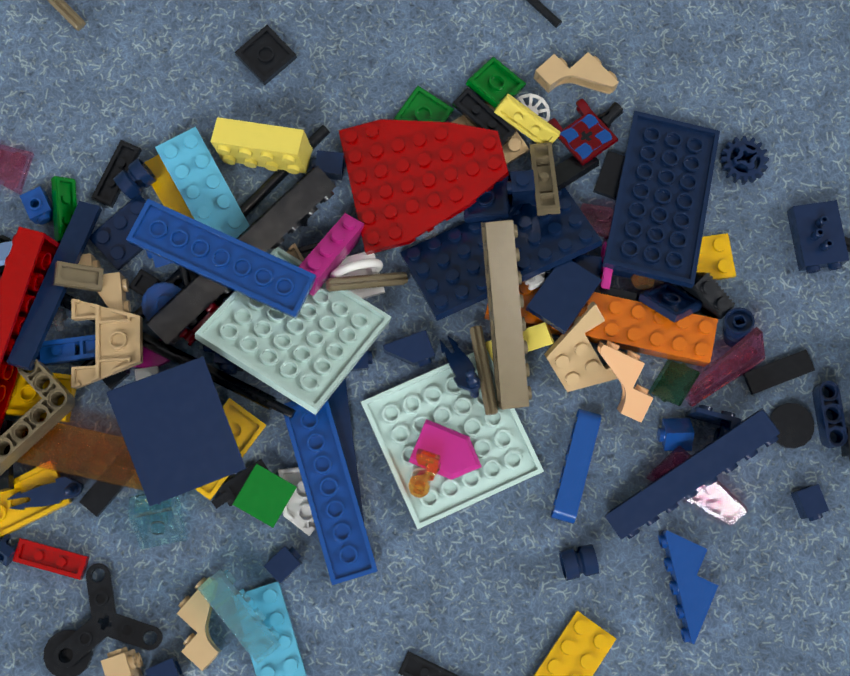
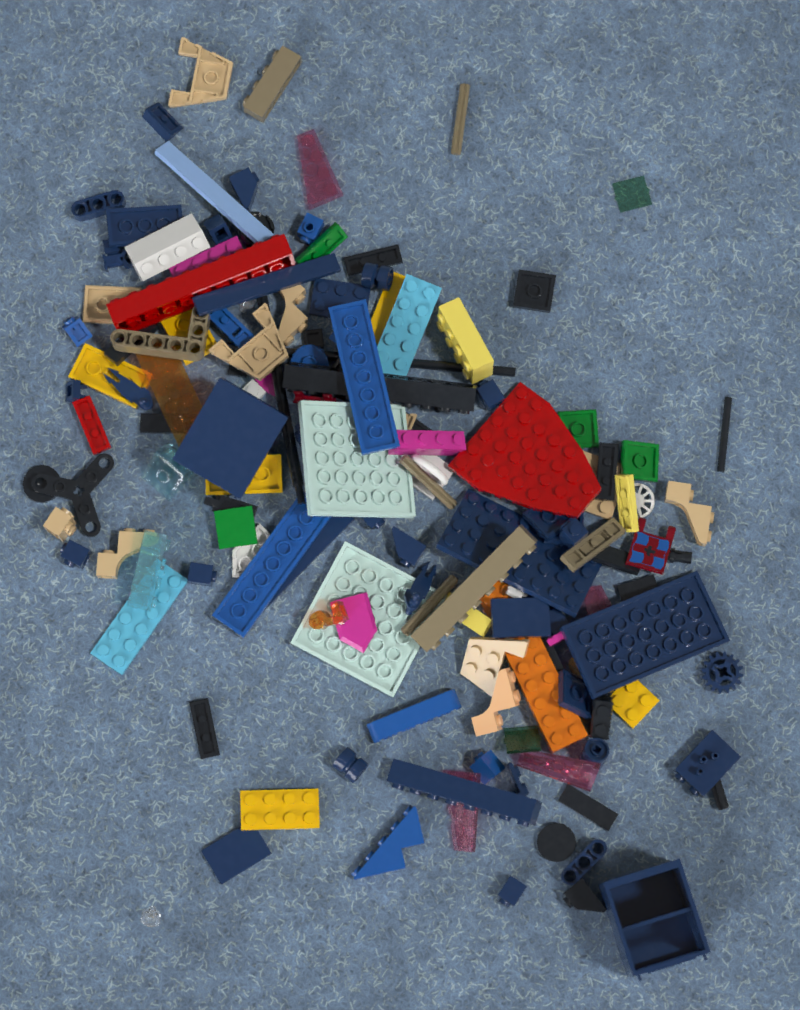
camera: 60 degrees right, 0 degrees up
(78, 276) = (283, 295): dark tan tile -> none

